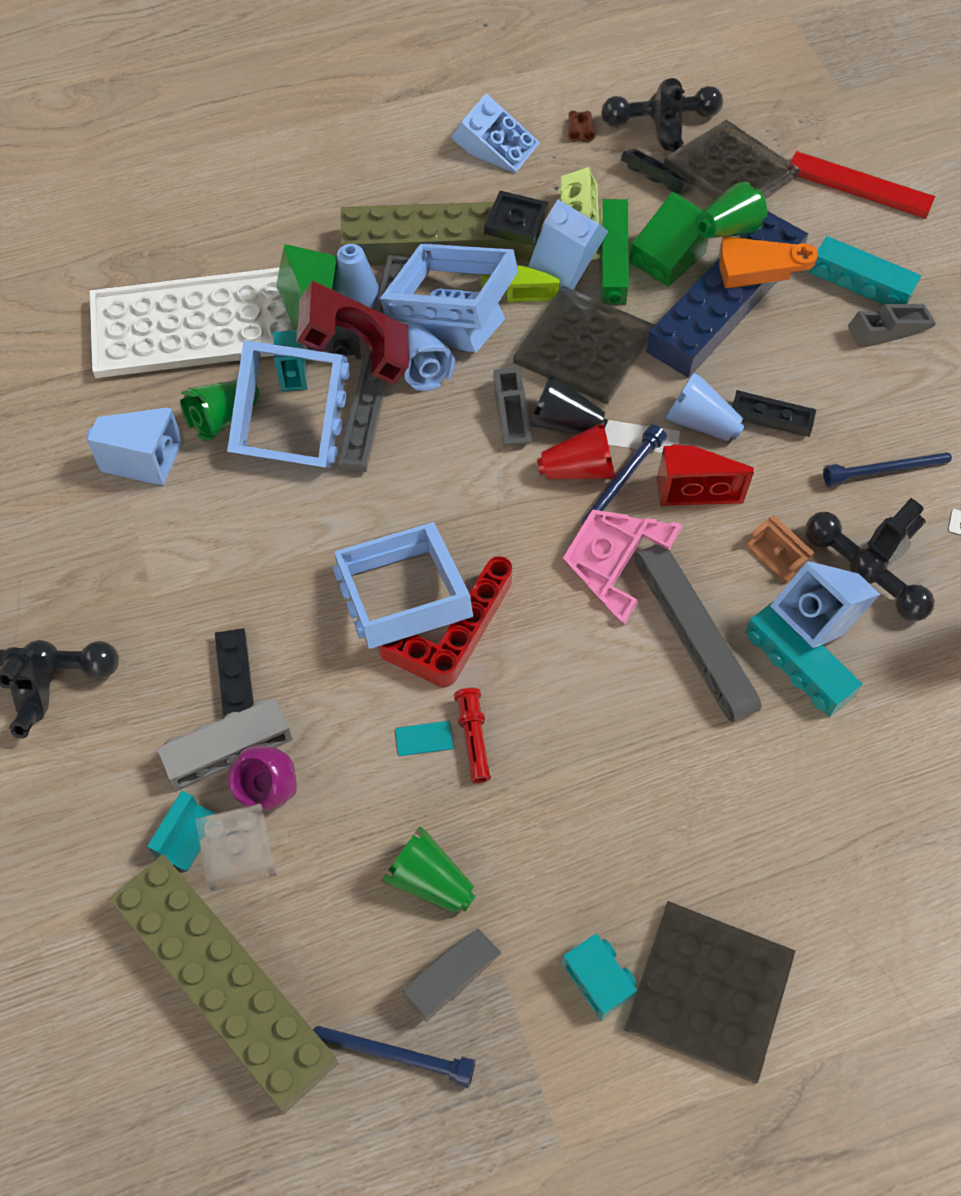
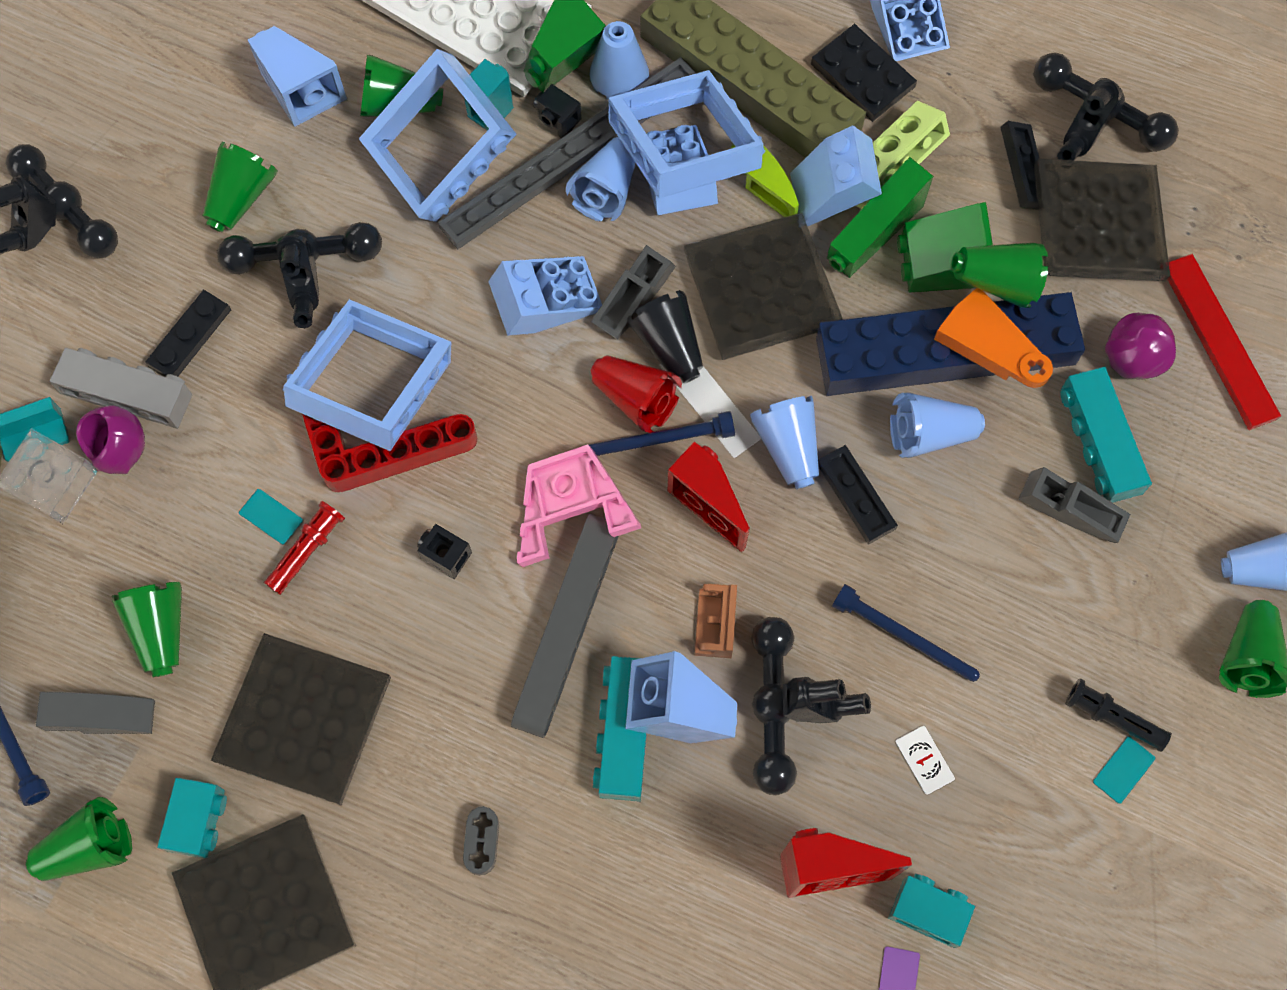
camera: 45 degrees right, 10 degrees up
(167, 544) = (234, 186): none -> green cone
(270, 552) = (297, 259): none -> black connector
(386, 338) = (579, 132): dark red arch -> none
(455, 452) = (543, 293): none -> light blue slope
(488, 181) = (863, 72): none -> black plate
(516, 218) = (811, 112): black plate -> none
(543, 1072) = (82, 843): none -> green cone
(574, 646) = (439, 538): none -> black brick
(581, 130) = (1004, 69): copper piece -> none
(594, 845) = (301, 719): none -> clear smoke plate
(768, 342) = (932, 424): none -> light blue cone
(795, 808) = (472, 841): none -> dark grey beam
(830, 212) = (1141, 346): none -> magenta piece

